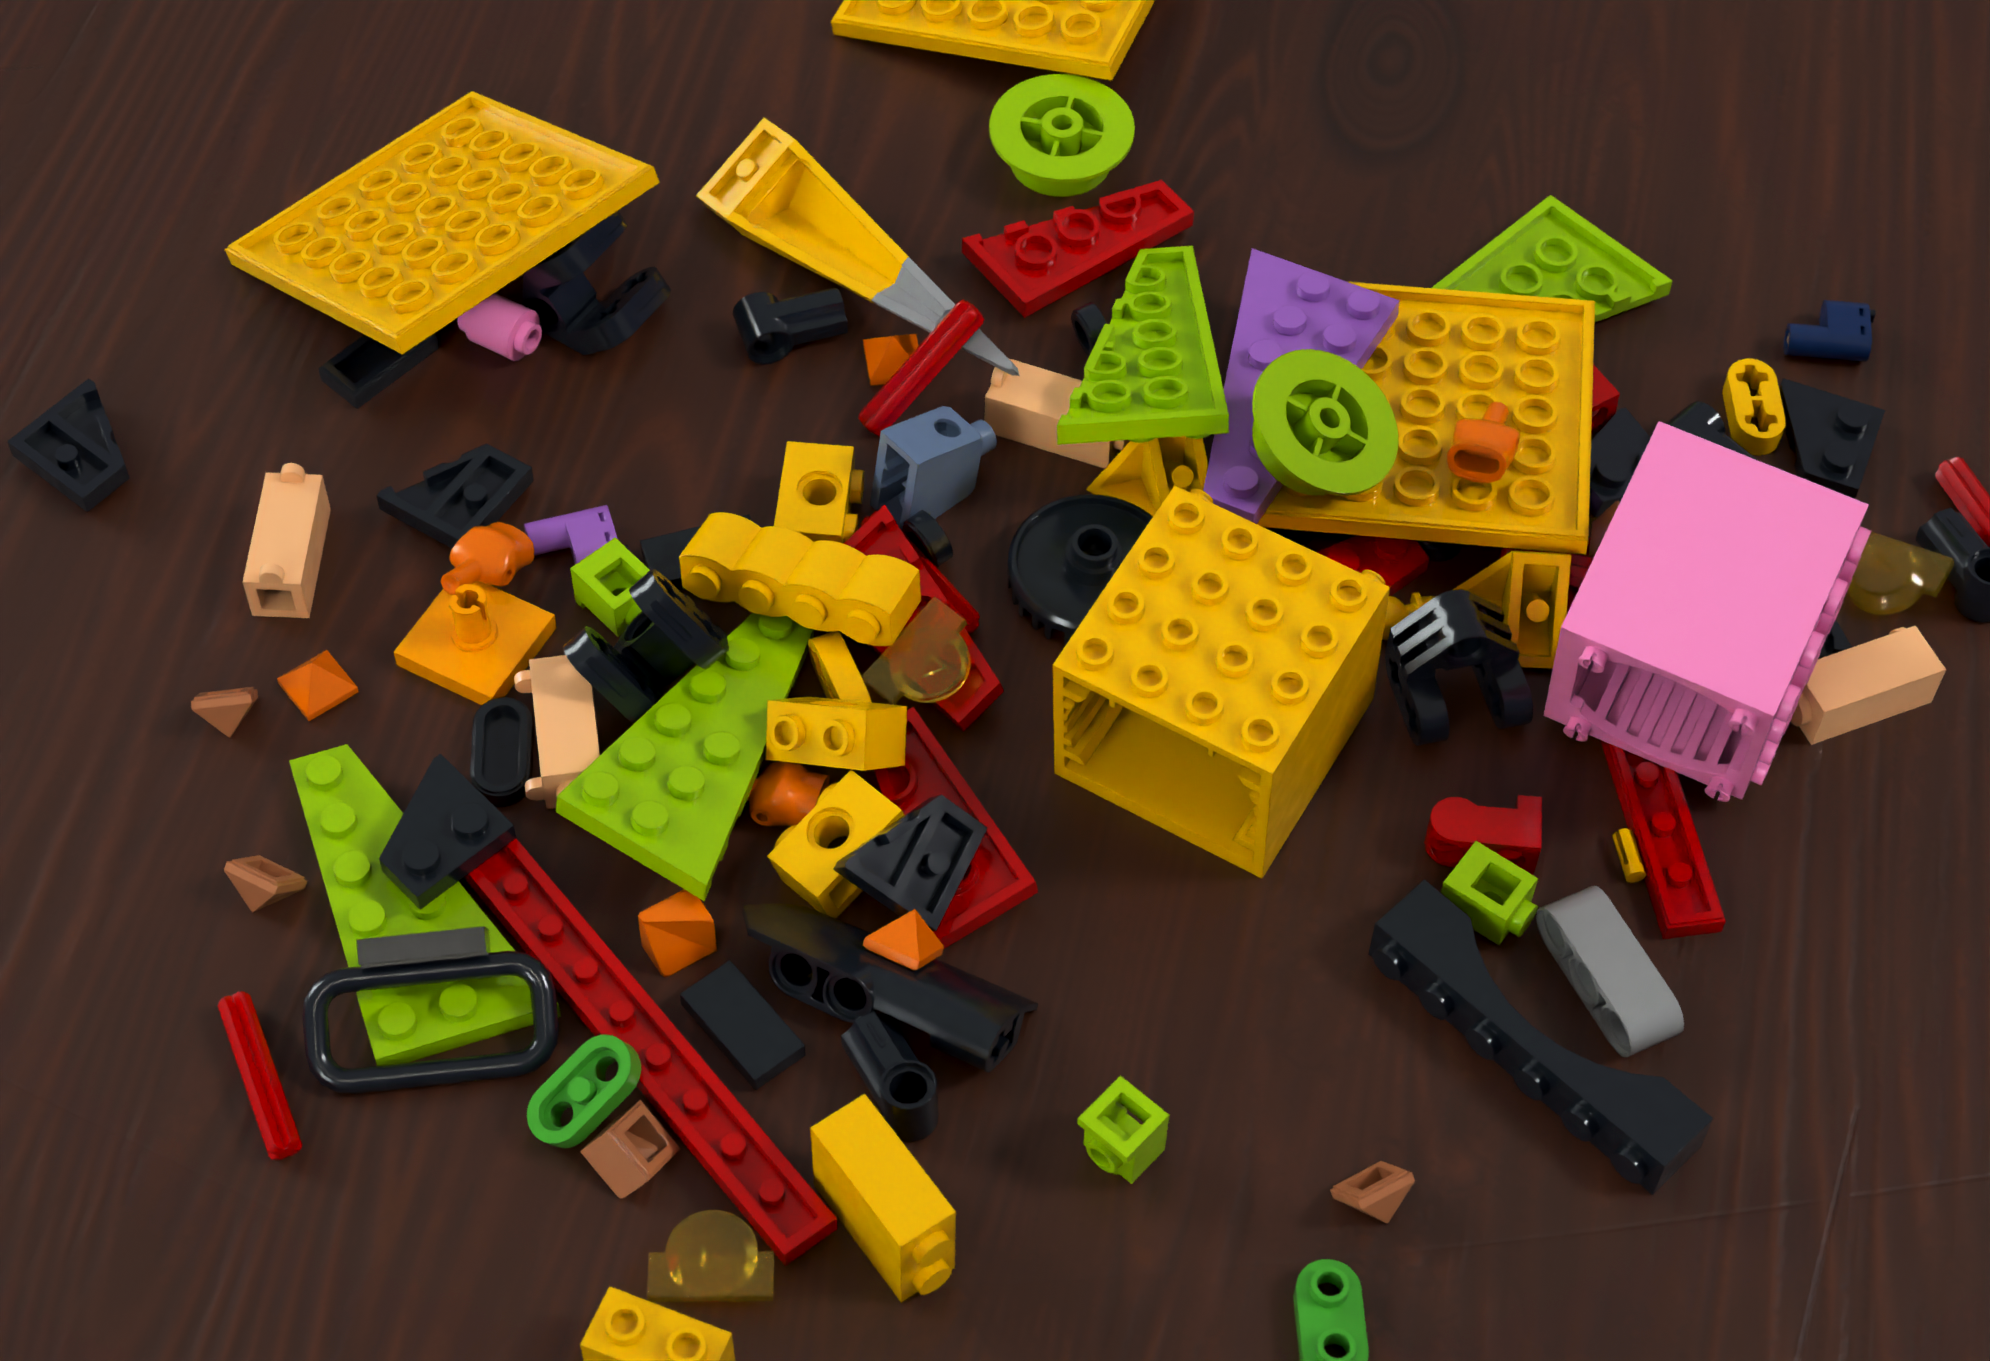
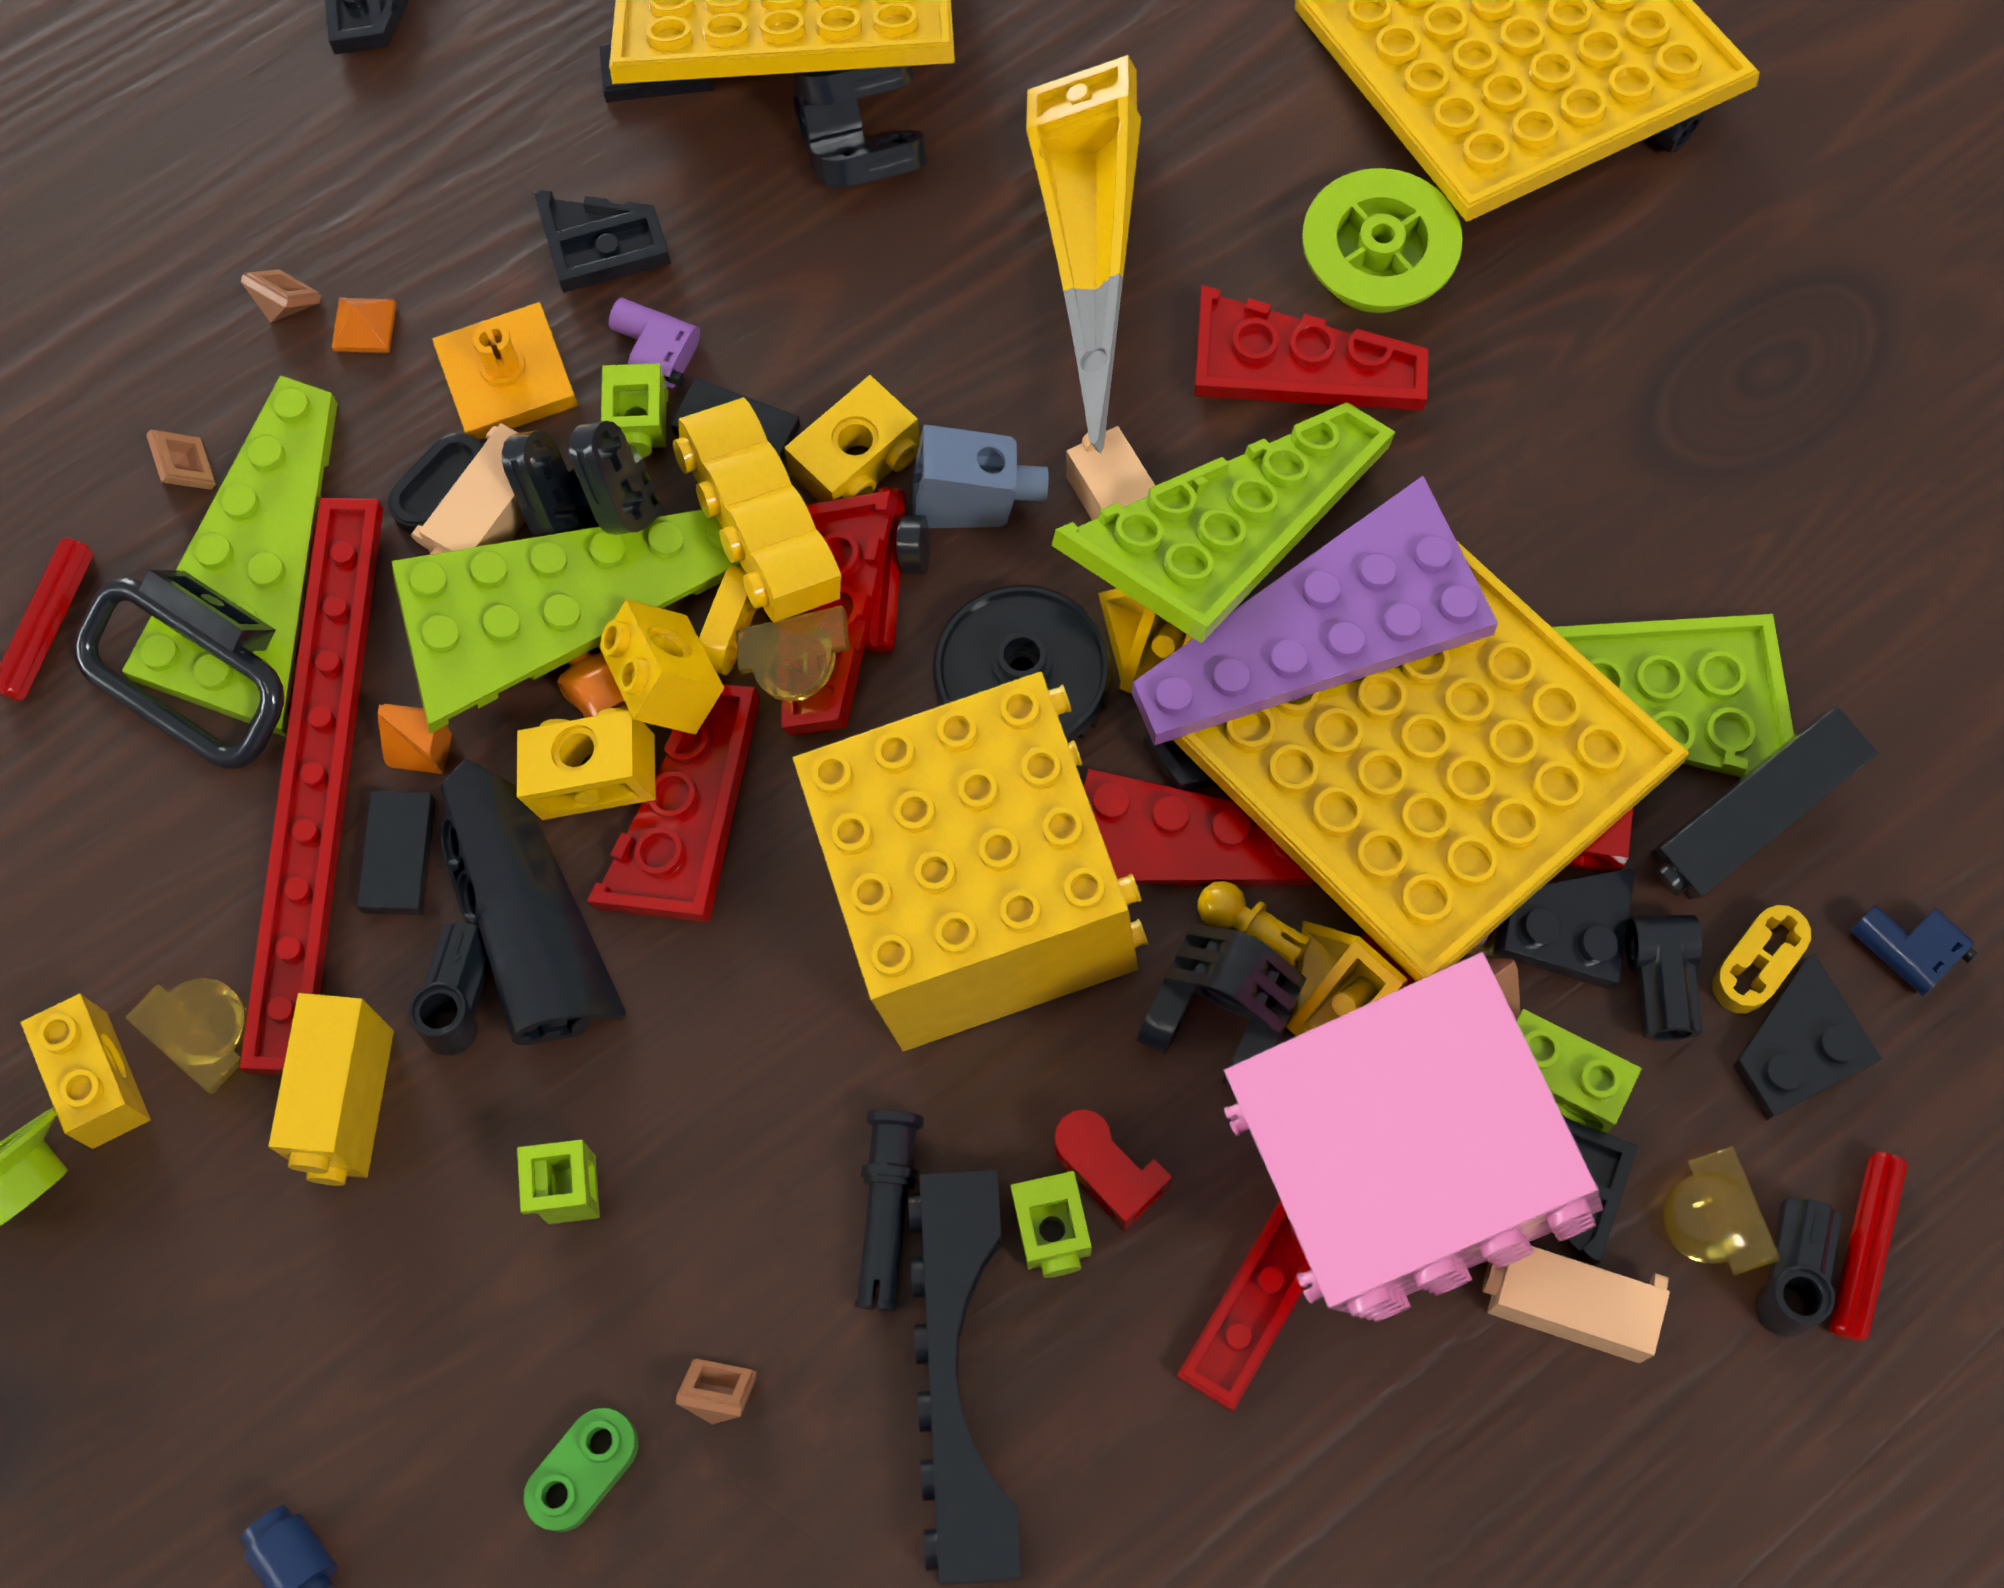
camera: 45 degrees right, 15 degrees up
(287, 544) = (437, 186): light nougat brick -> none
(443, 835) = (314, 524): black wing -> none
(488, 556) = (562, 308): orange piece -> none
(502, 327) = (764, 108): bright pink brick -> none
(583, 1086) = (224, 817): bright green plate -> none
(630, 1150) = (225, 889): nougat slope -> none
(773, 325) = (976, 257): black piece -> none
(887, 355) = (1048, 357): orange slope -> none
(906, 941) = (552, 888): orange slope -> none
(917, 859) = (615, 826): black wing -> none
(921, 367) = (1038, 385): red axle -> none
(1087, 325) = (1231, 440): black tile -> none
(1322, 424) = (1316, 691): lime piece -> none
(1347, 956) = (888, 1177): none -> black pin
(1483, 446) = (1419, 822): orange piece -> none
(1610, 971) = (1086, 1372): light grey beam -> none
(1629, 855) = (1217, 1281): yellow piece -> none
(1666, 305) = (1762, 804): none -> black brick

